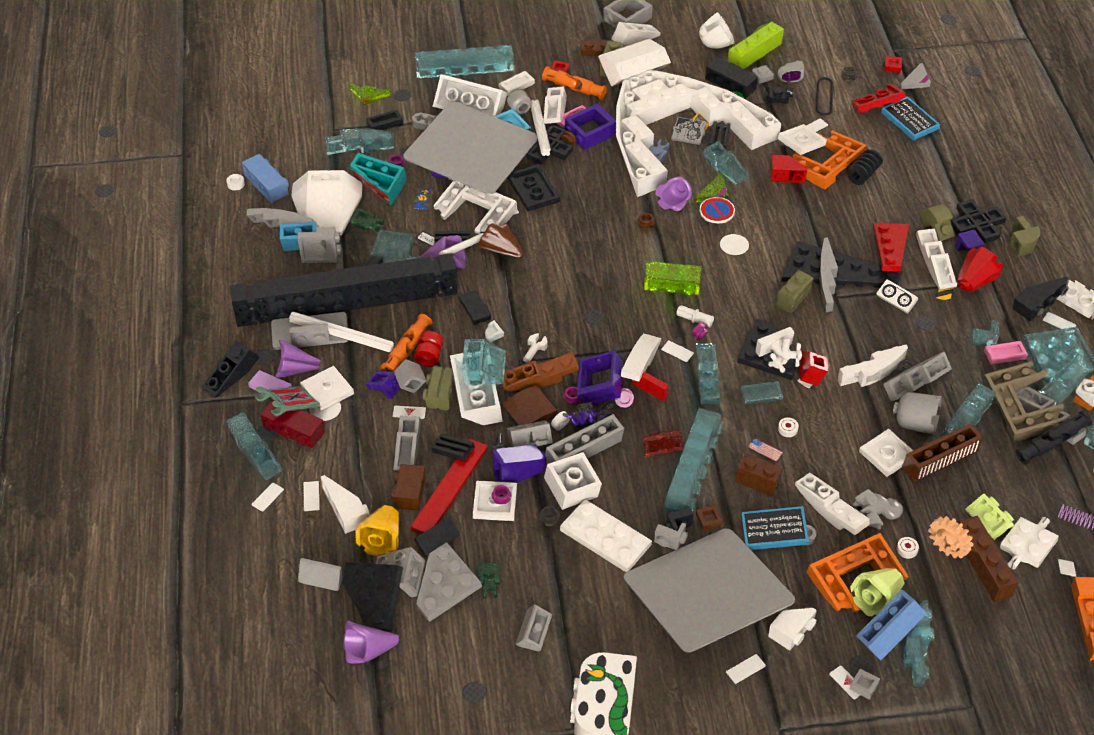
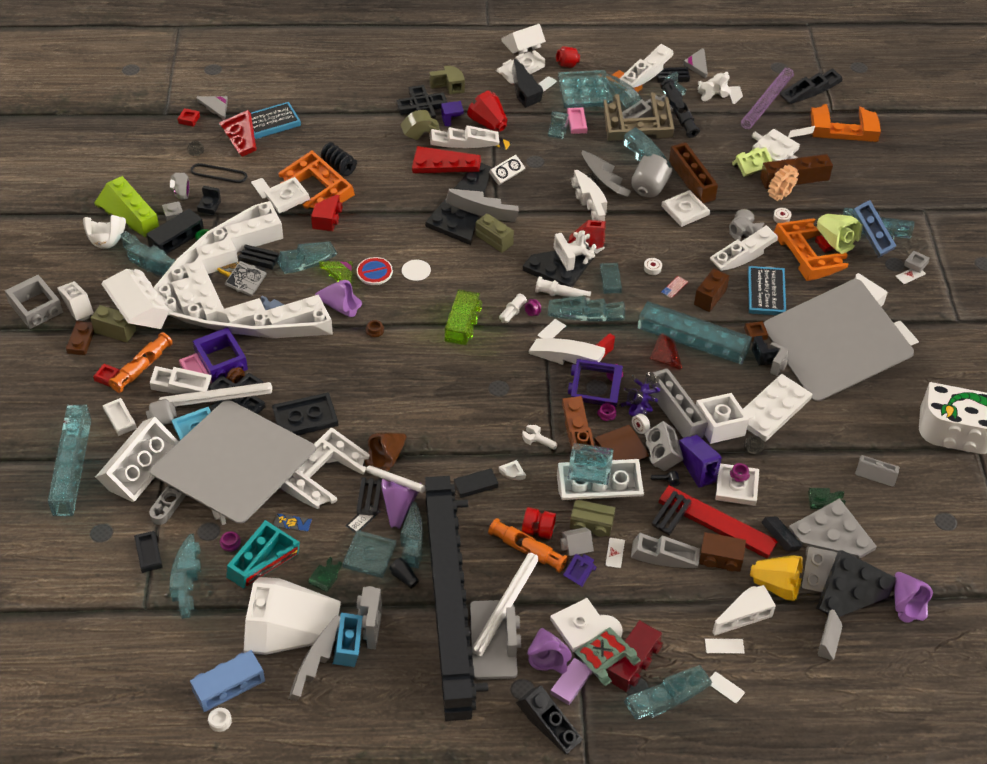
camera: 85 degrees left, 0 degrees up
(368, 93) = (89, 567): clear neon green tile -> none
(699, 60) = (148, 258): none -> clear light blue slope
(730, 345) = (554, 288): none -> white pin

